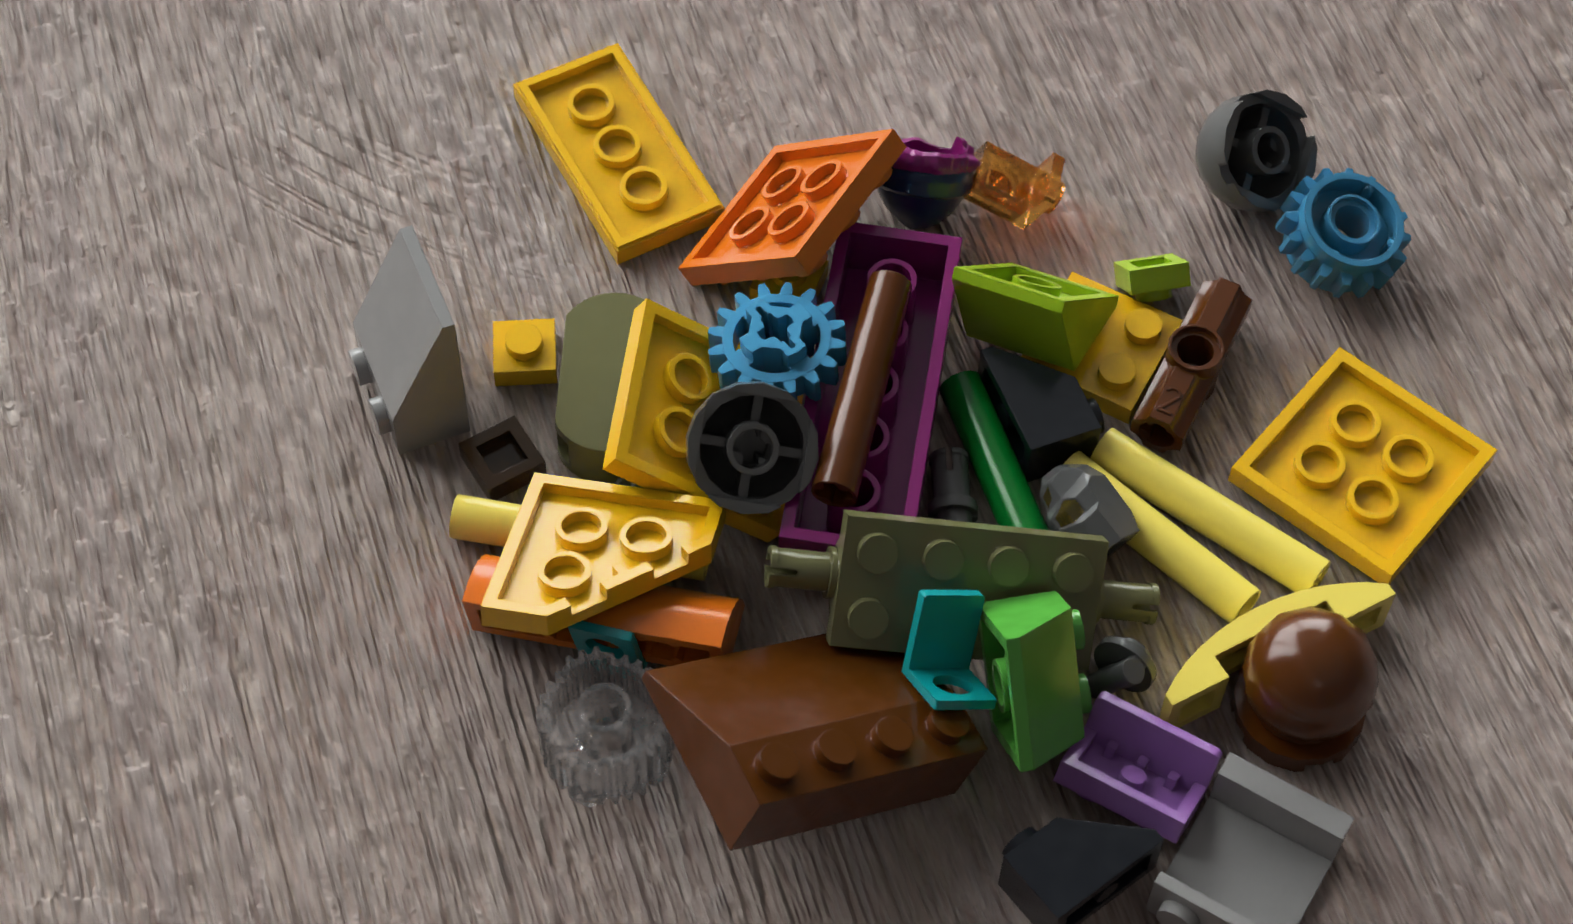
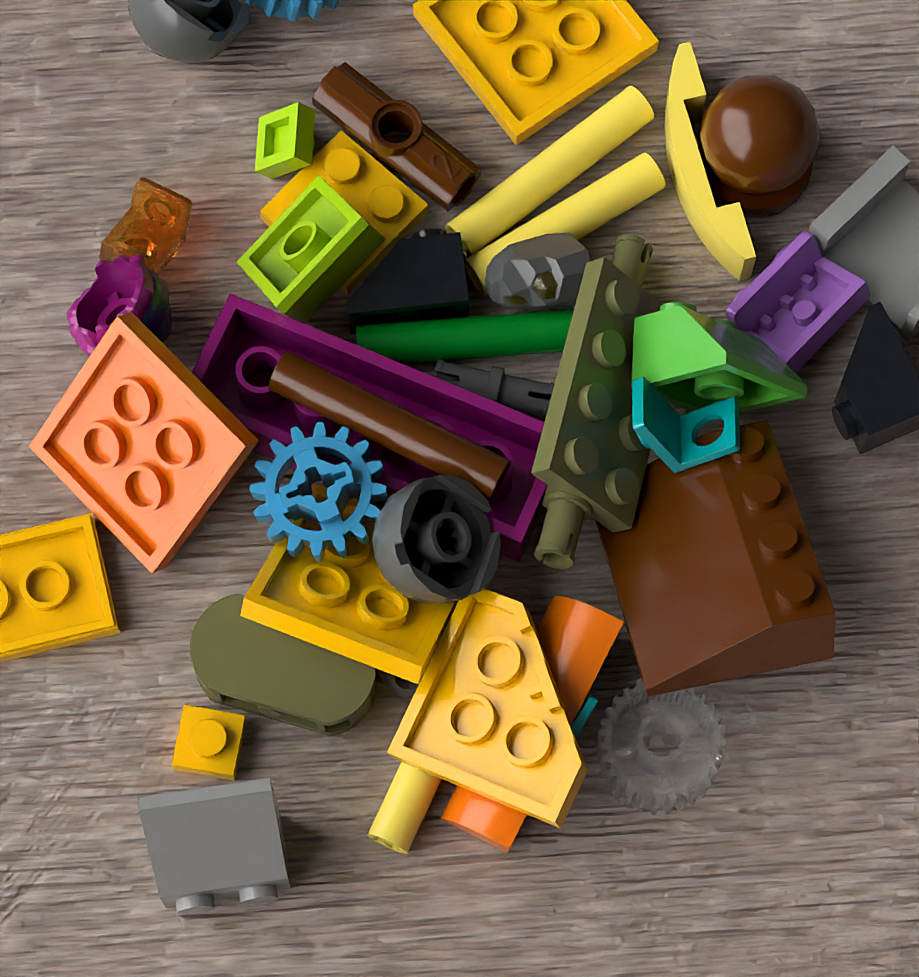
camera: 75 degrees left, 15 degrees up
(502, 458) = (336, 786): dark brown plate -> none
(1121, 665) = (696, 286): dark grey plate -> none

